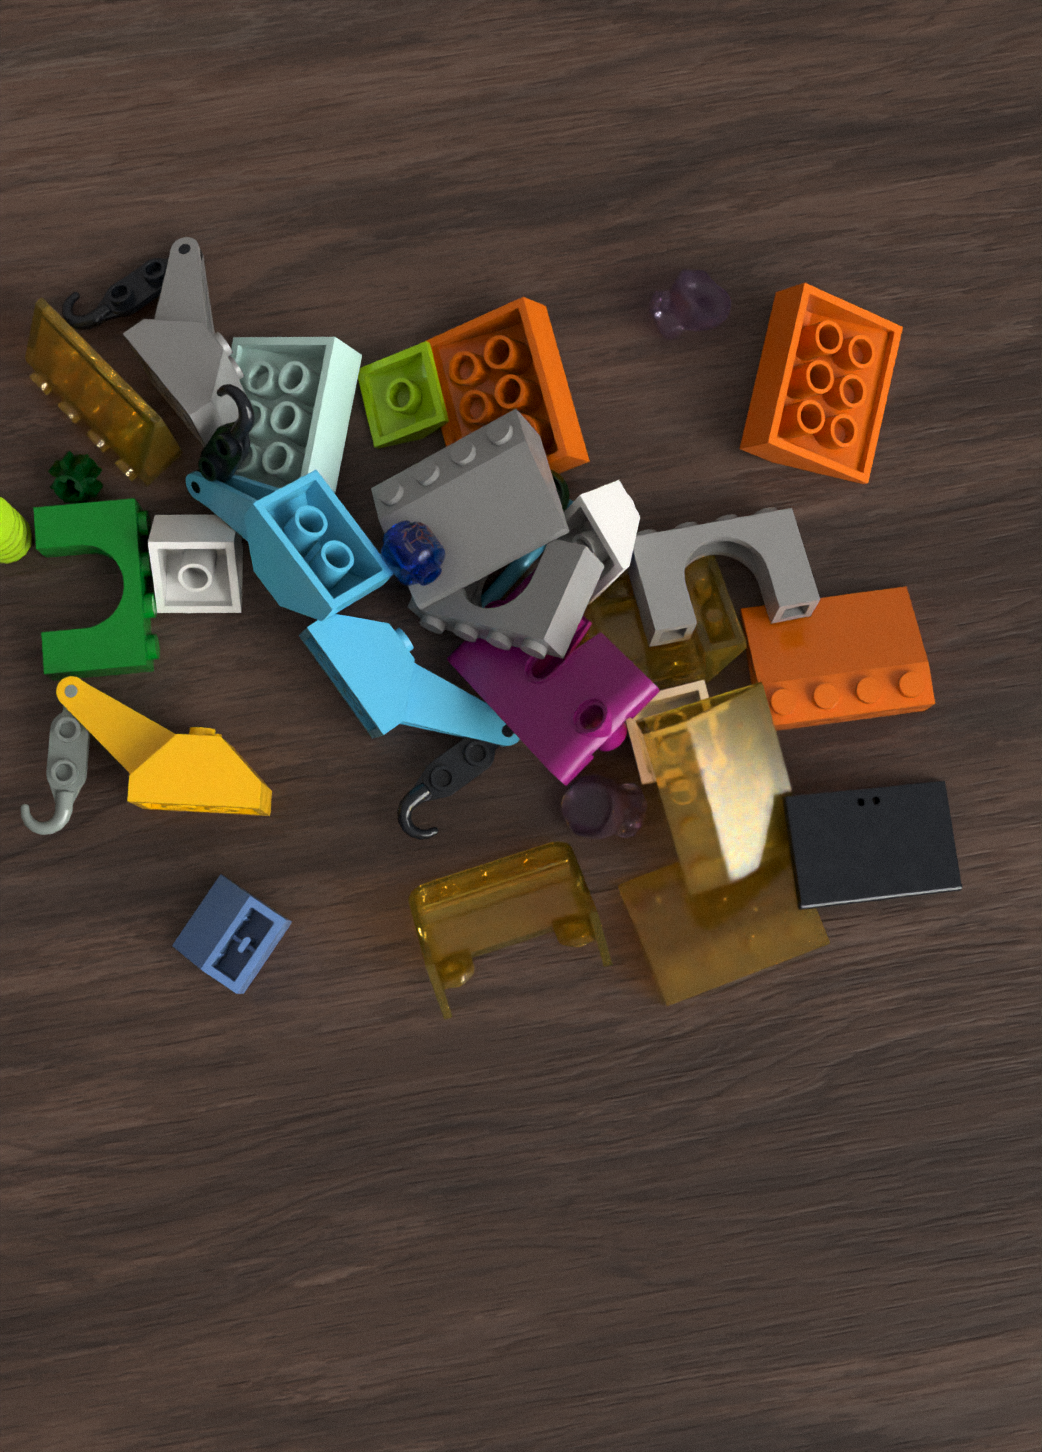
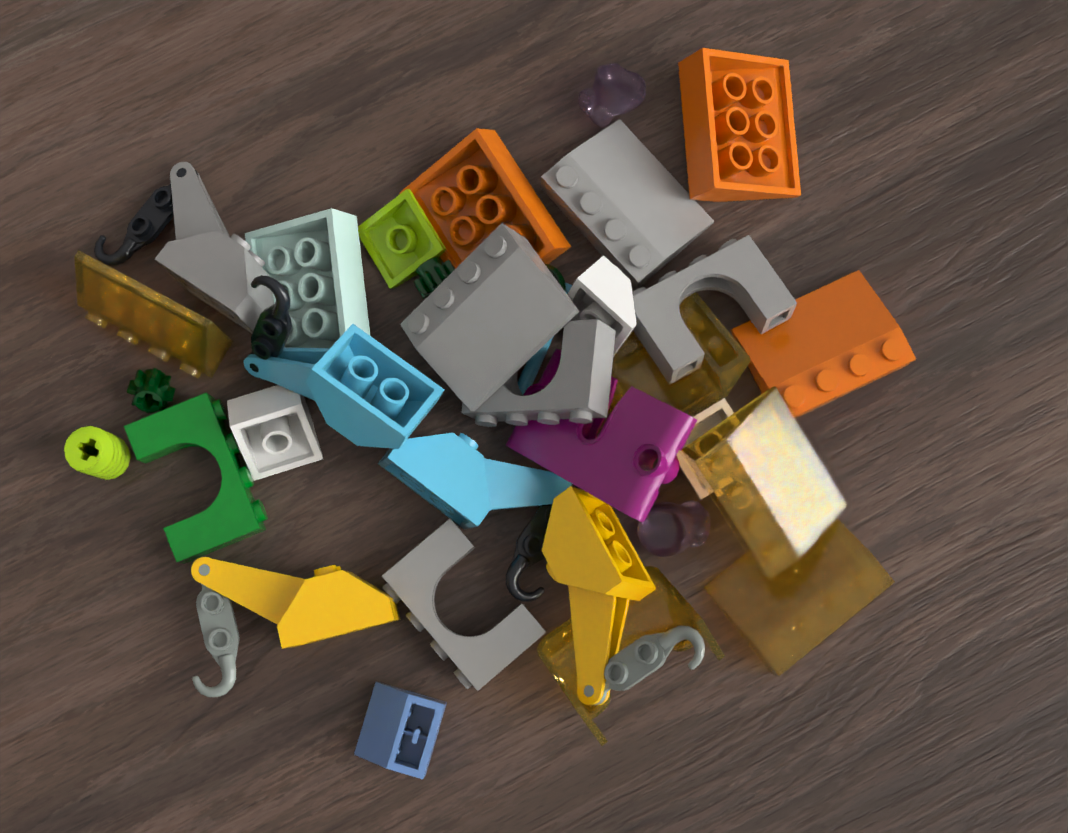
camera: 20 degrees left, 0 degrees up
(298, 779) = (415, 583): none -> light grey arch
(412, 553) = (454, 368): clear blue head -> none
(423, 444) = (431, 275): none -> dark green gear
(508, 827) = (603, 573): none -> yellow slope
(666, 431) = (625, 202): none -> light grey slope
(867, 851) = (900, 495): black container -> none

